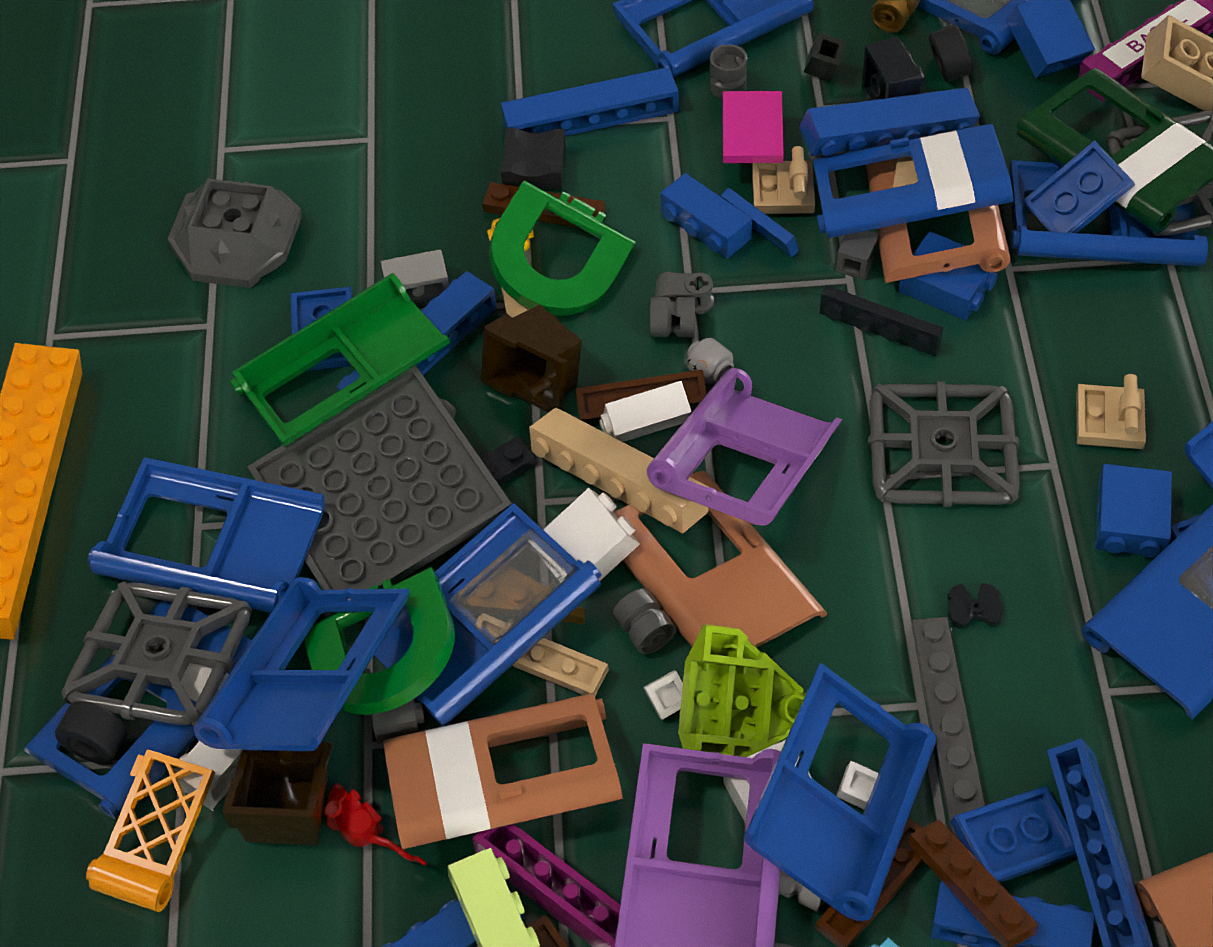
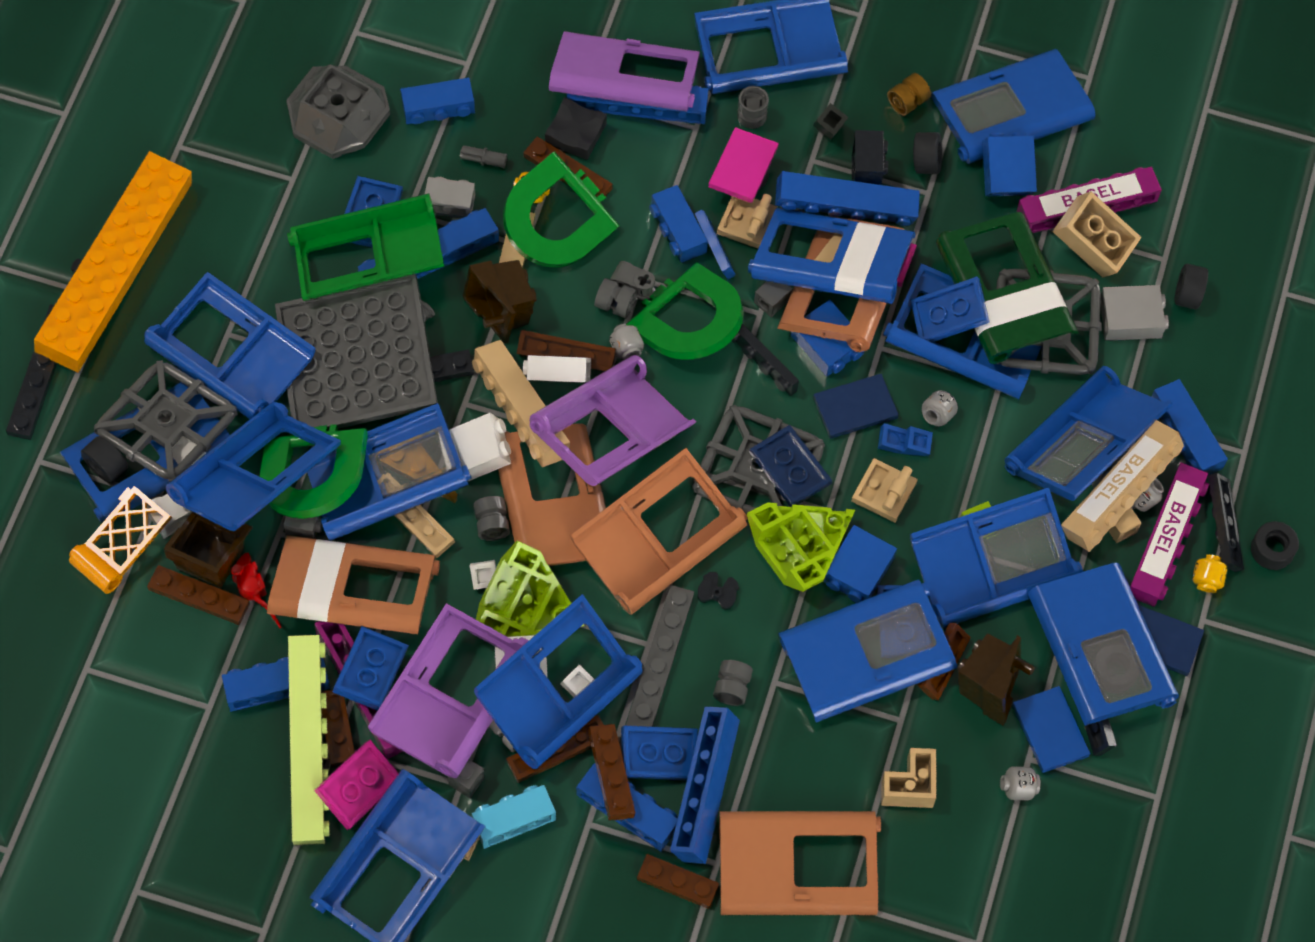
camera: 15 degrees right, 10 degrees up
(290, 865) = (198, 595): none -> reddish brown plate
(354, 183) = (437, 101): none -> blue brick
(436, 223) = (483, 156): none -> dark grey axle
(534, 89) = (592, 65): none -> medium lavender piece
(579, 870) = (370, 668): none -> blue tile
(785, 336) = (701, 342): none -> green piece
(841, 600) = (630, 555): none -> nougat piece
(986, 427) = (790, 466): none -> dark blue tile
(1019, 338) = (855, 406): none -> dark blue tile
(1046, 509) = (798, 540): none -> lime wedge
(1059, 709) = (733, 680): none -> dark grey wheel
(1104, 355) = (903, 441): none -> blue slope
(1121, 304) = (939, 408): none -> light grey head

